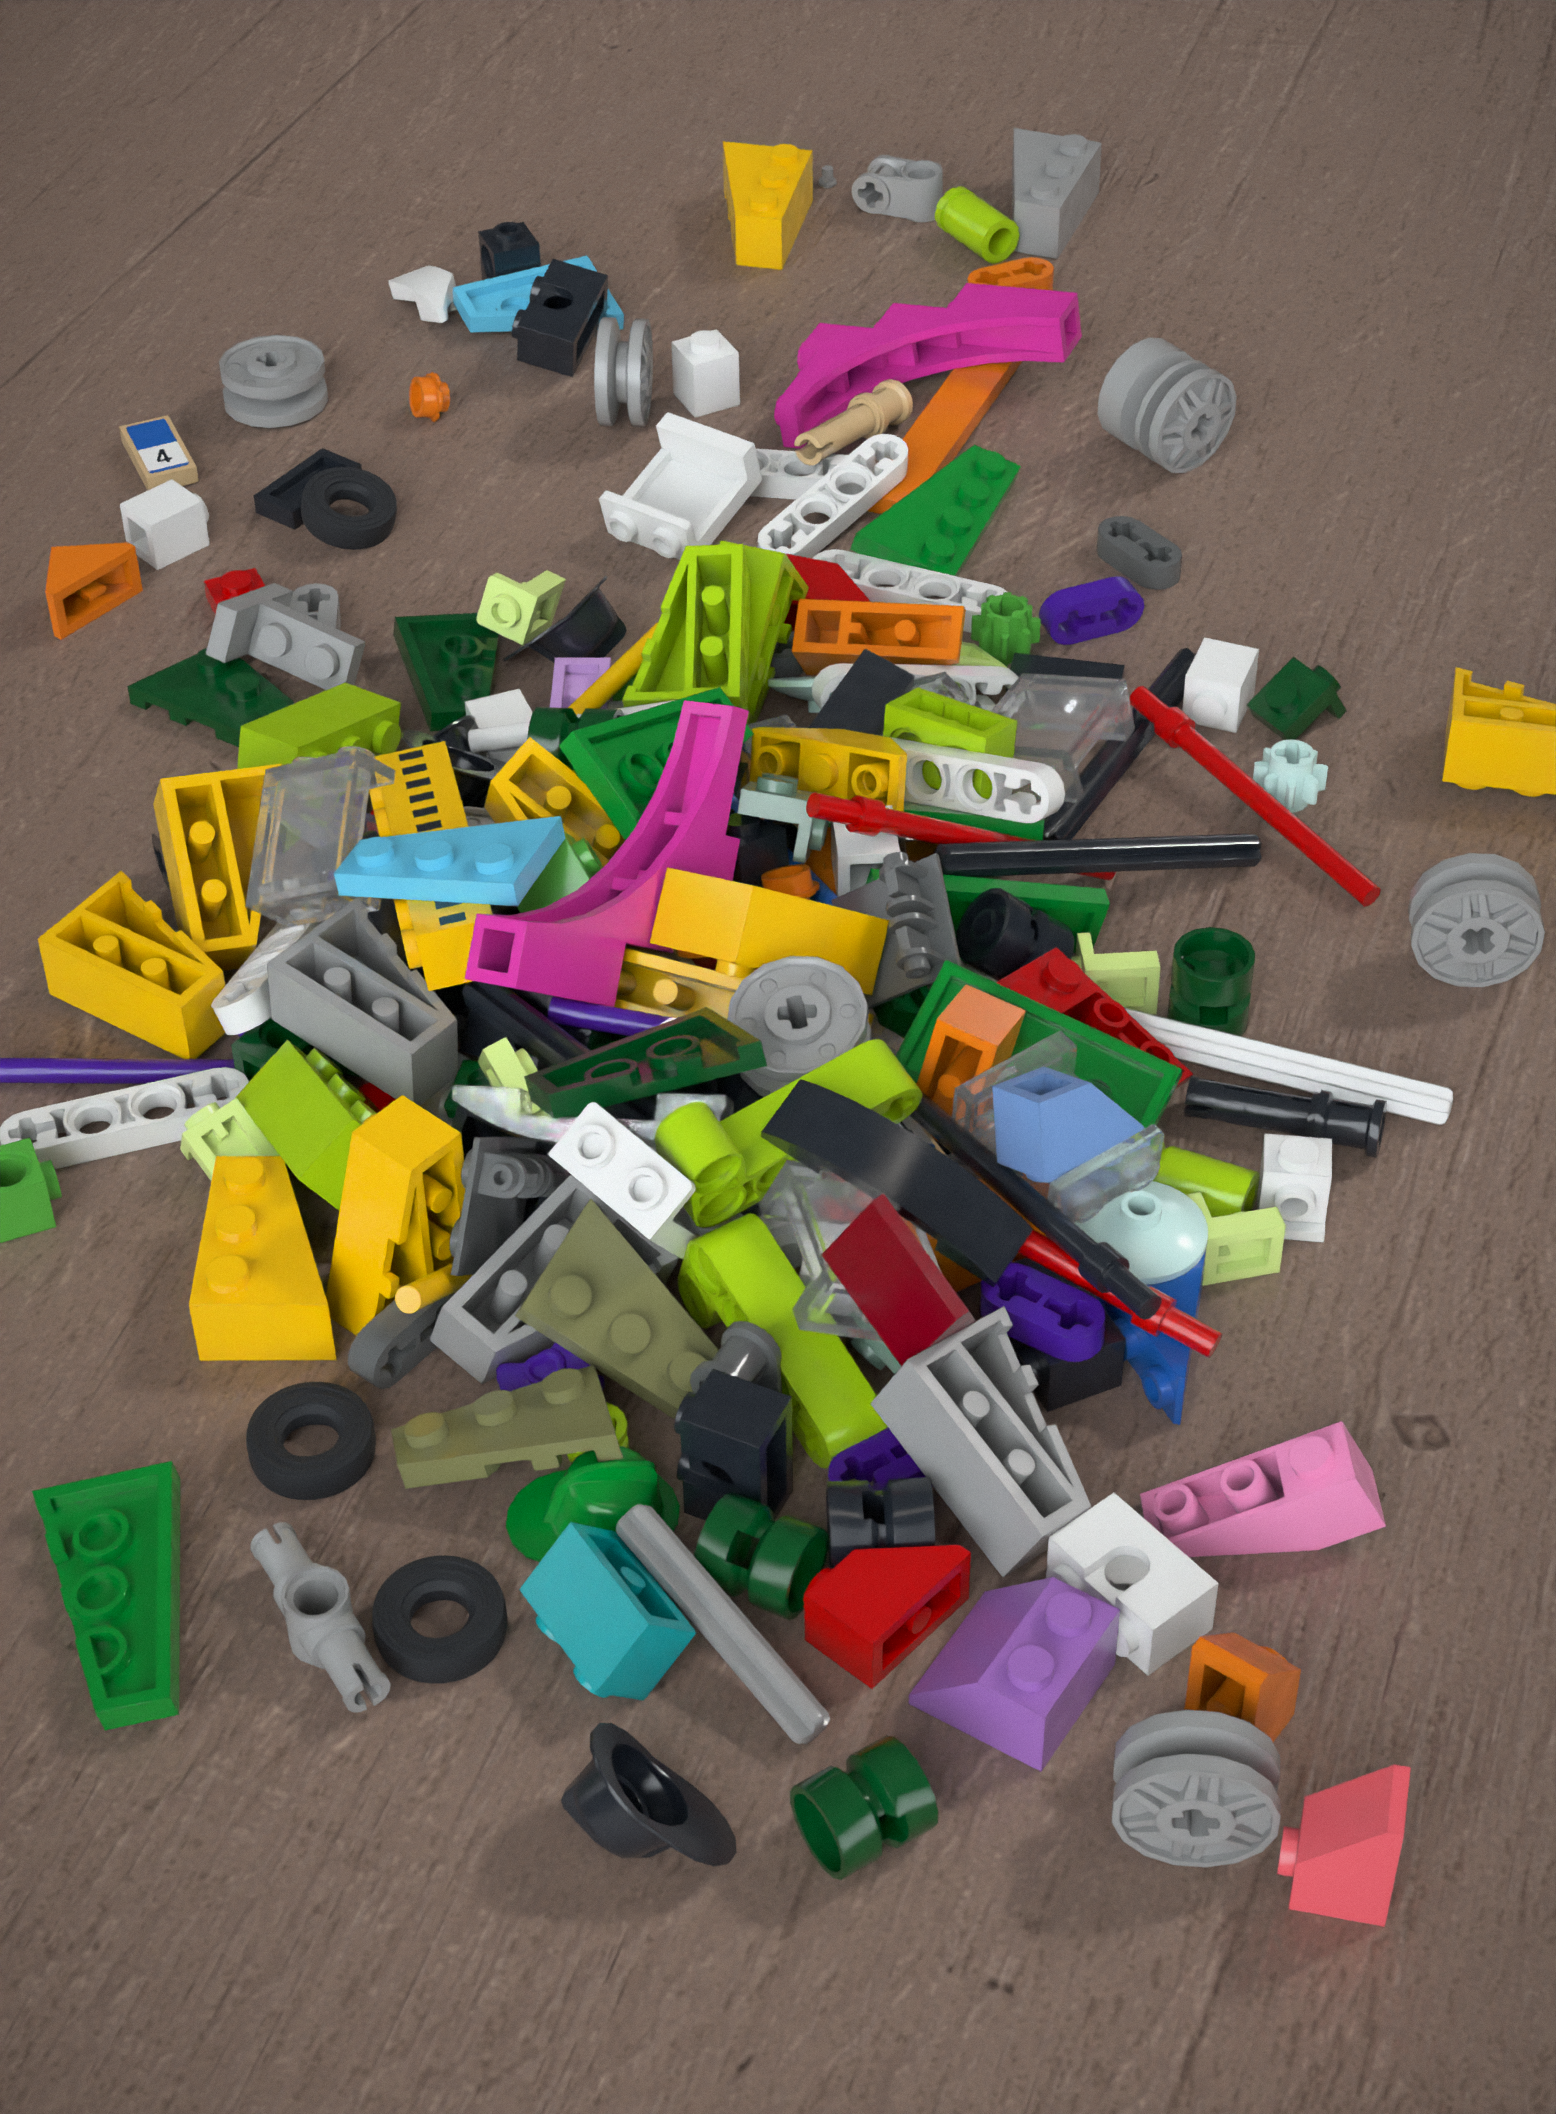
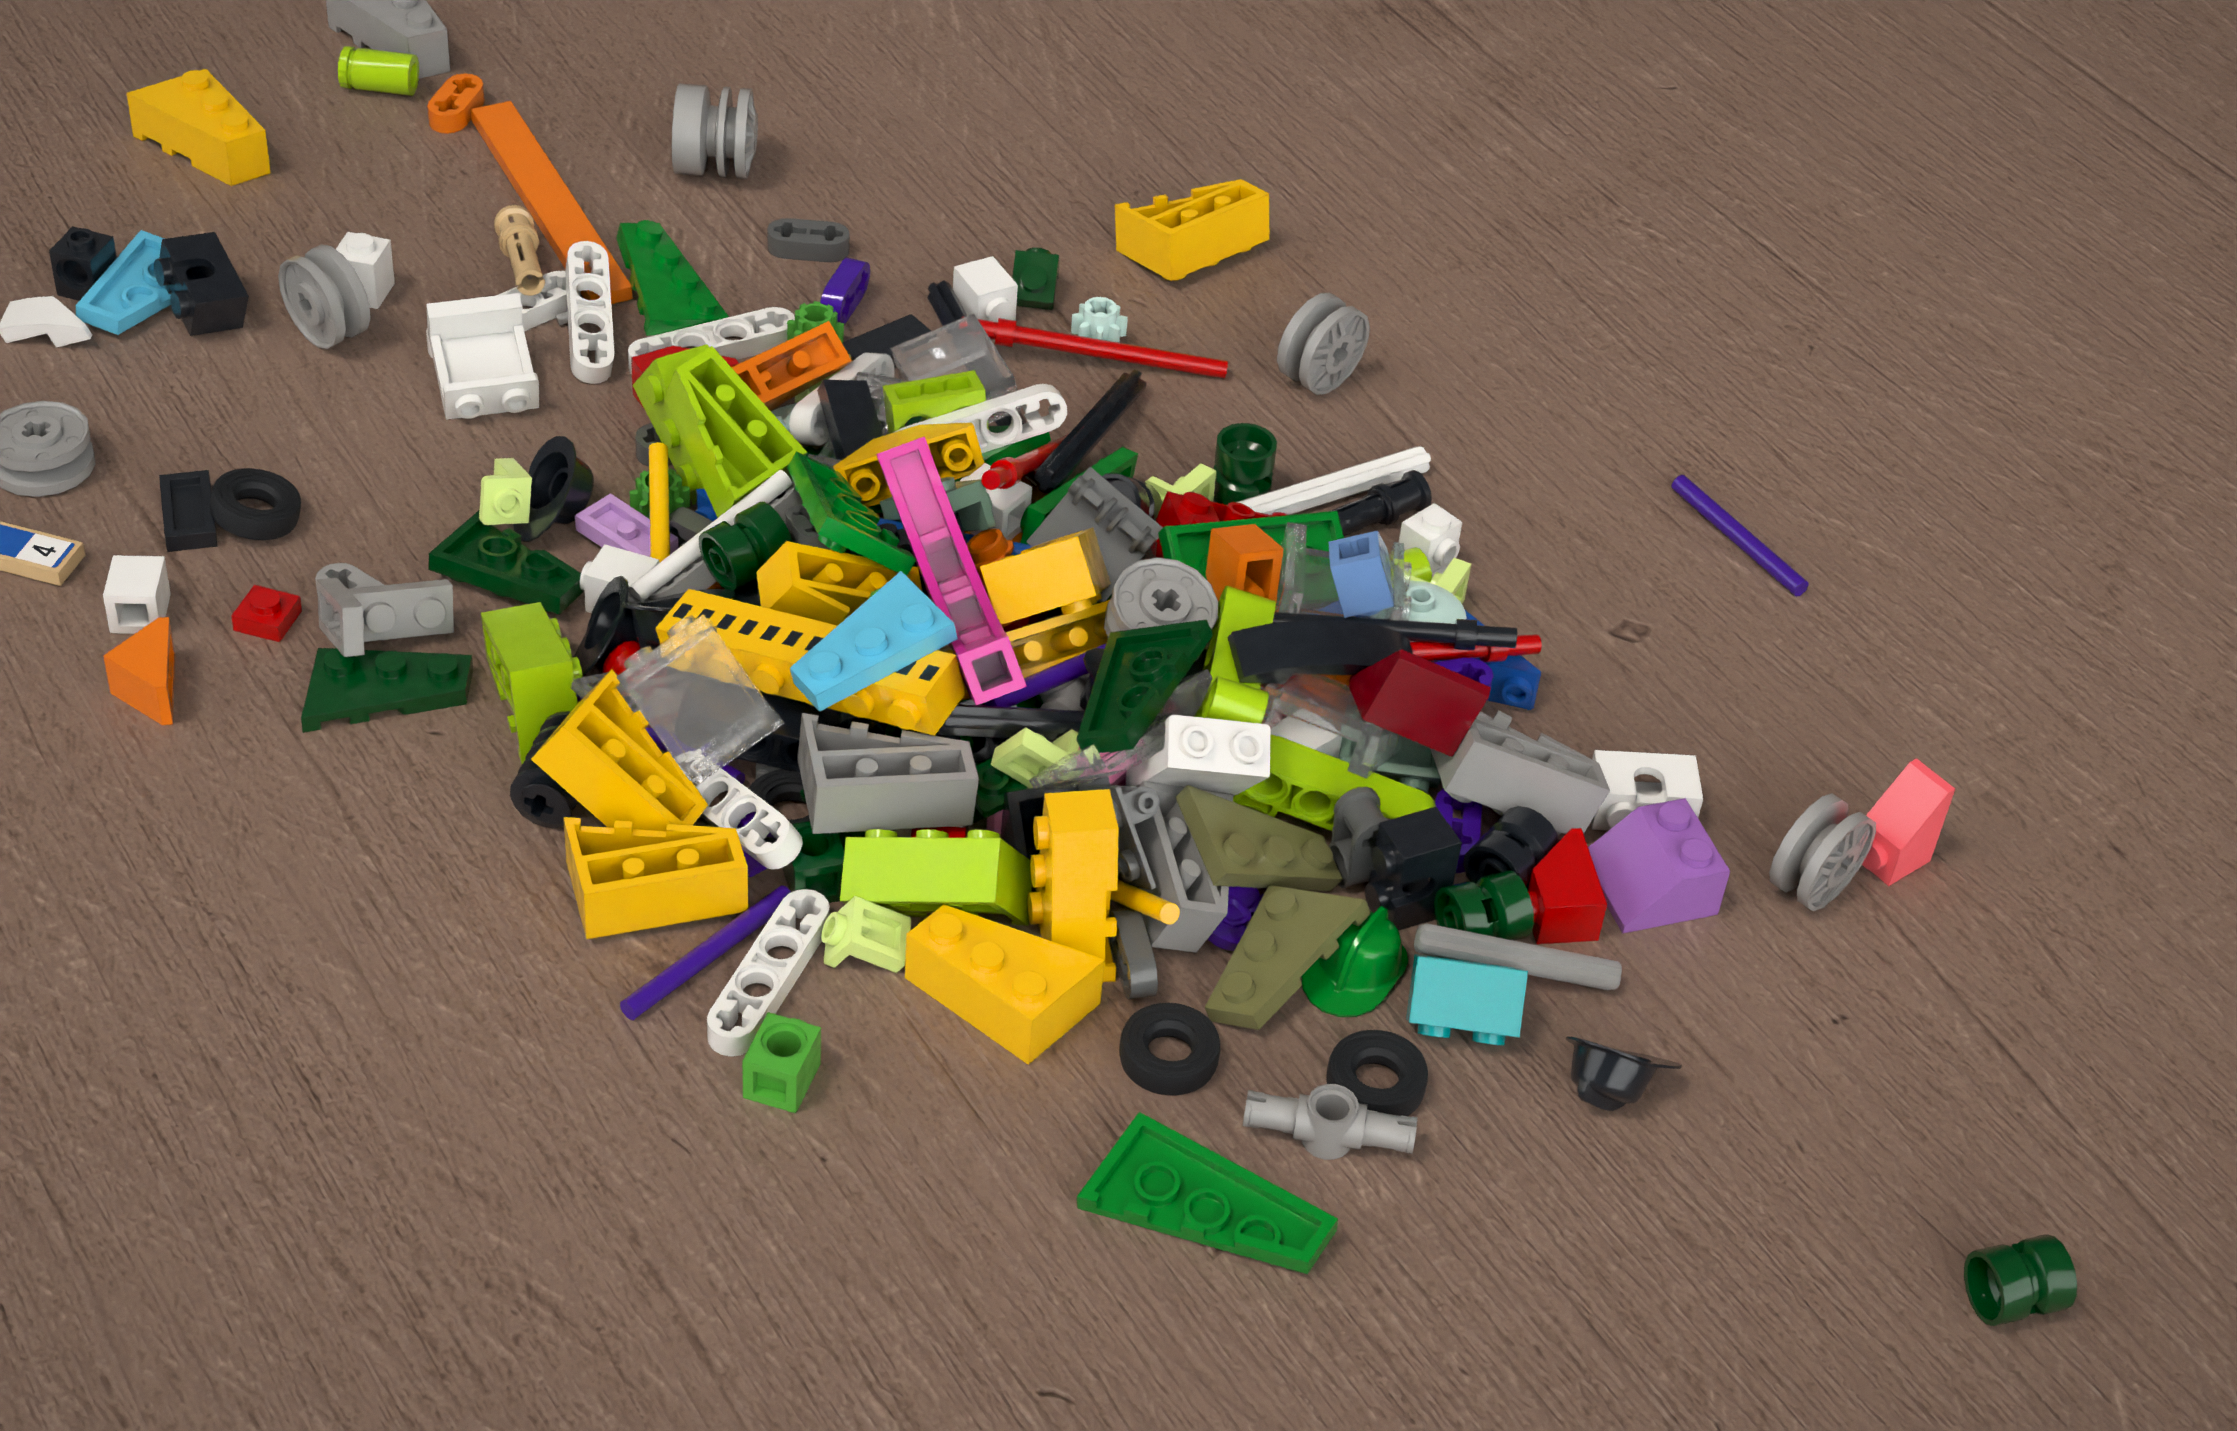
camera: 55 degrees left, 0 degrees up
(428, 396) = (168, 400): orange plate -> none
(871, 1803) = (1701, 984): dark green wheel -> none
(907, 188) = (286, 68): light grey piece -> none
(918, 340) = (479, 172): dark pink arch -> none
(1242, 1682) = (1768, 803): orange slope -> none
(1272, 1500) = (1643, 700): bright pink slope -> none

